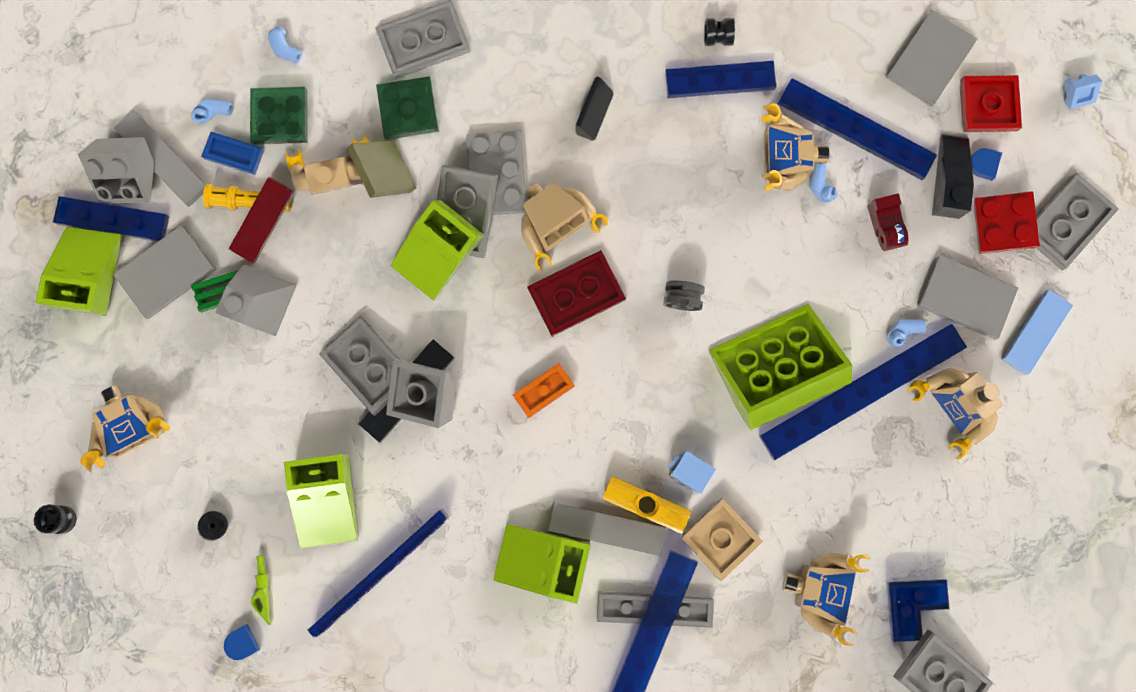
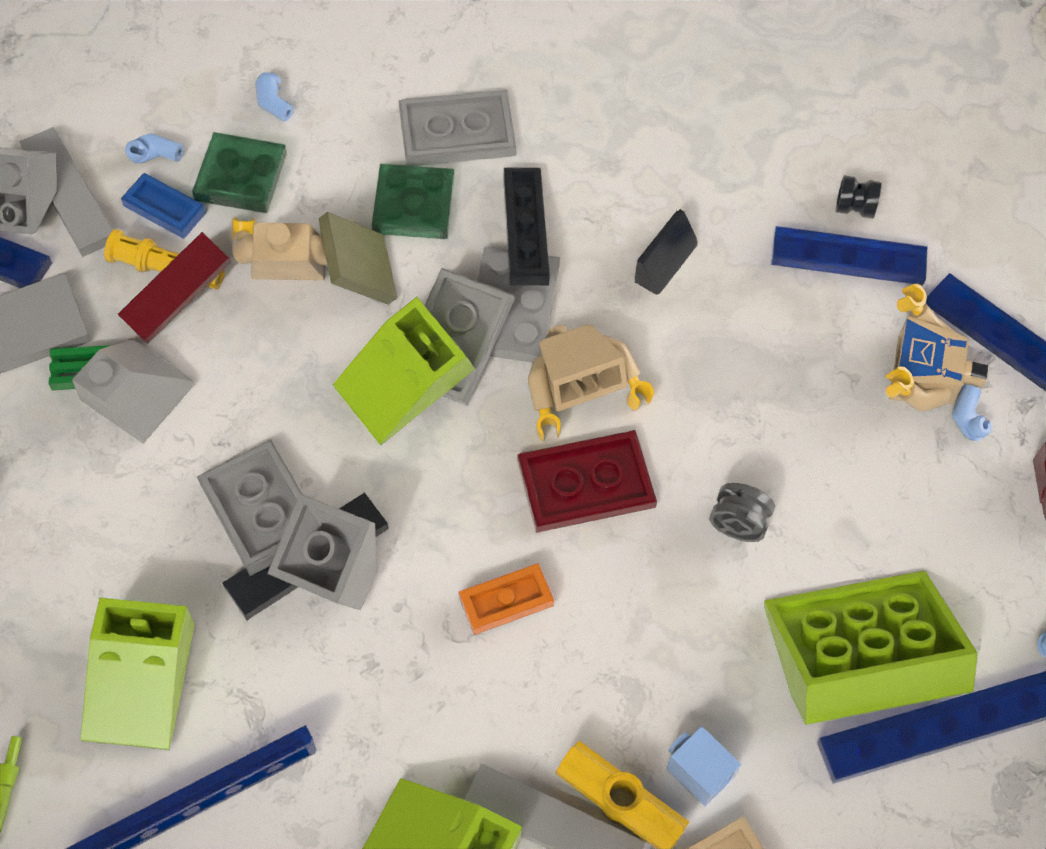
camera: 10 degrees right, 20 degrees down
(491, 112) = (525, 227): none -> black tile

